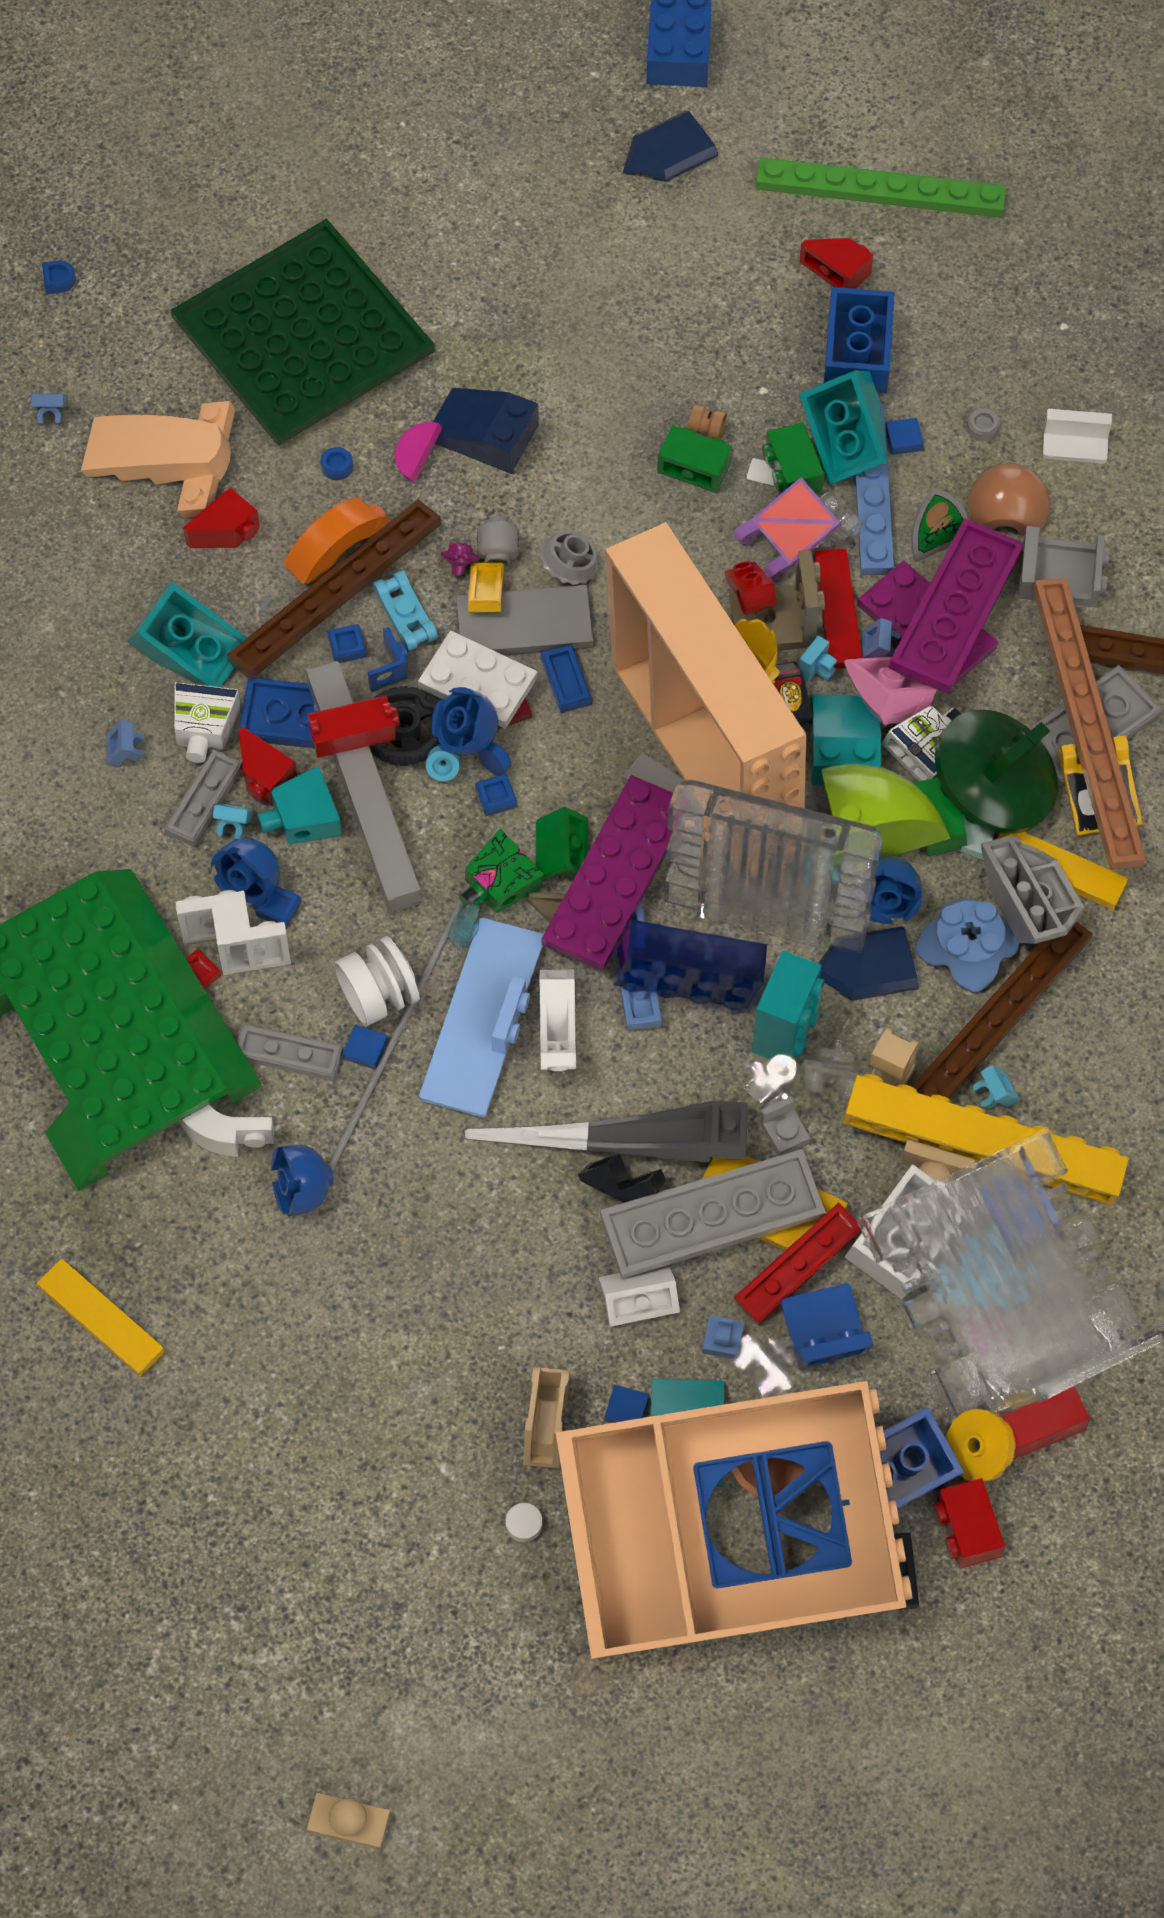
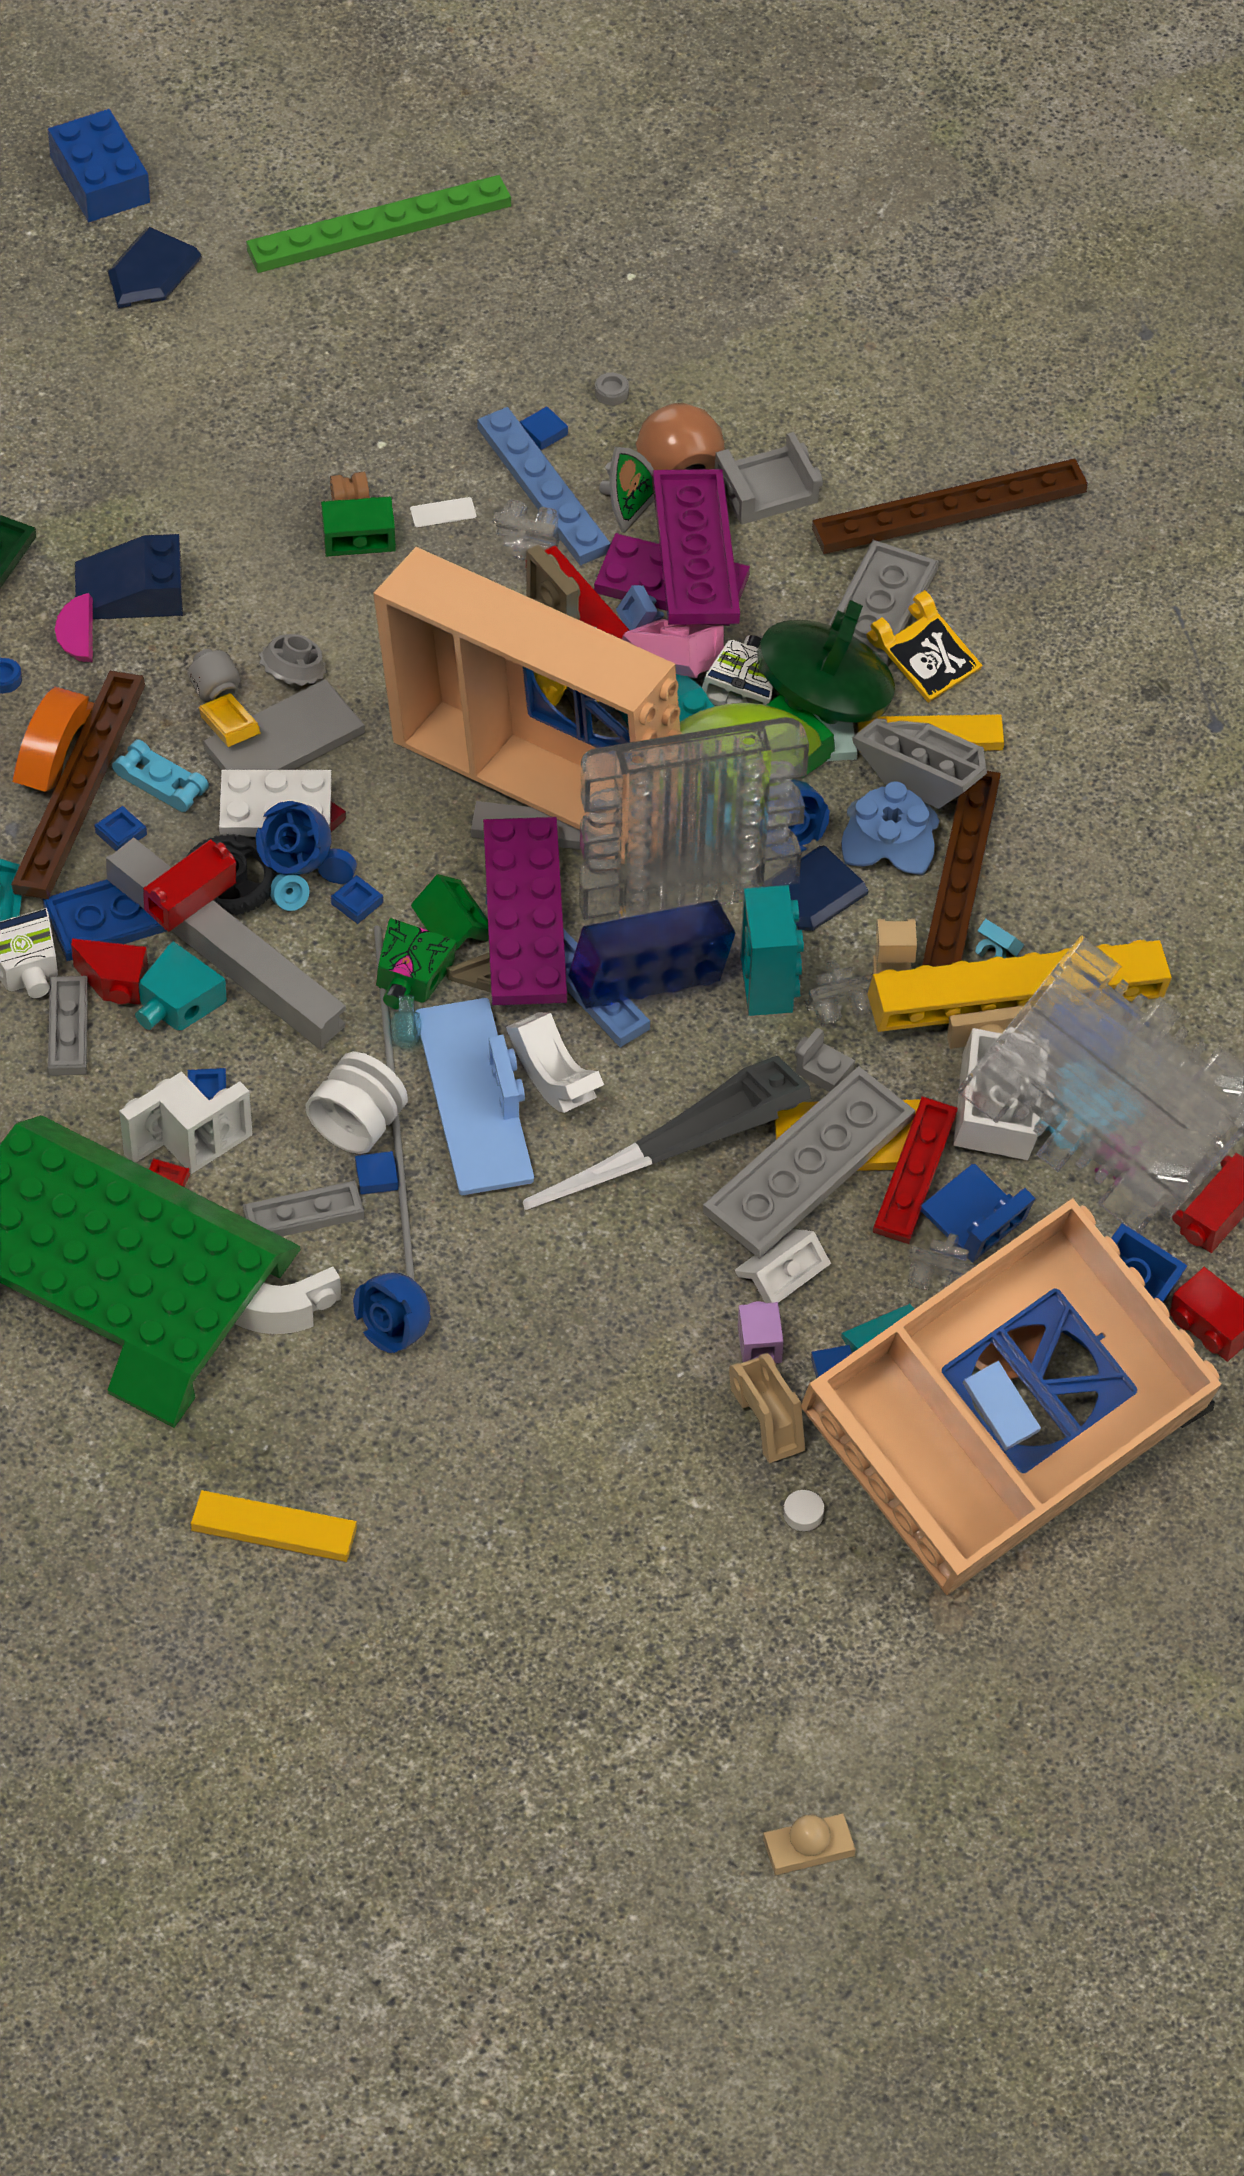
camera: 30 degrees left, 10 degrees down
(232, 815) = (111, 1025): medium azure tile -> none
(247, 867) = (156, 1057): blue cylinder -> none
(398, 666) = (182, 818): blue bracket -> none
(459, 556) = (184, 704): magenta plant -> none
(566, 678) = (358, 770): blue tile -> none
(581, 1346) = (760, 1331): none -> lavender brick
(613, 1179) = (689, 1175): black slope -> none
(706, 1532) = (1001, 1405): none -> light blue tile
(723, 1337) = (884, 1266): medium blue tile -> none
(771, 1082) = (790, 1023): clear hips -> none
(792, 457) = (456, 489): green brick -> none
(792, 524) = (495, 539): flag -> none
(837, 261) = (382, 302): red slope -> none
(846, 425) = (489, 436): teal slope -> none
(859, 334) = (450, 358): blue brick -> none
(995, 1441) = (1200, 1233): yellow plate -> none
(1076, 436) = (706, 361): white panel -> none
(1088, 724) = (884, 594): nougat plate -> none

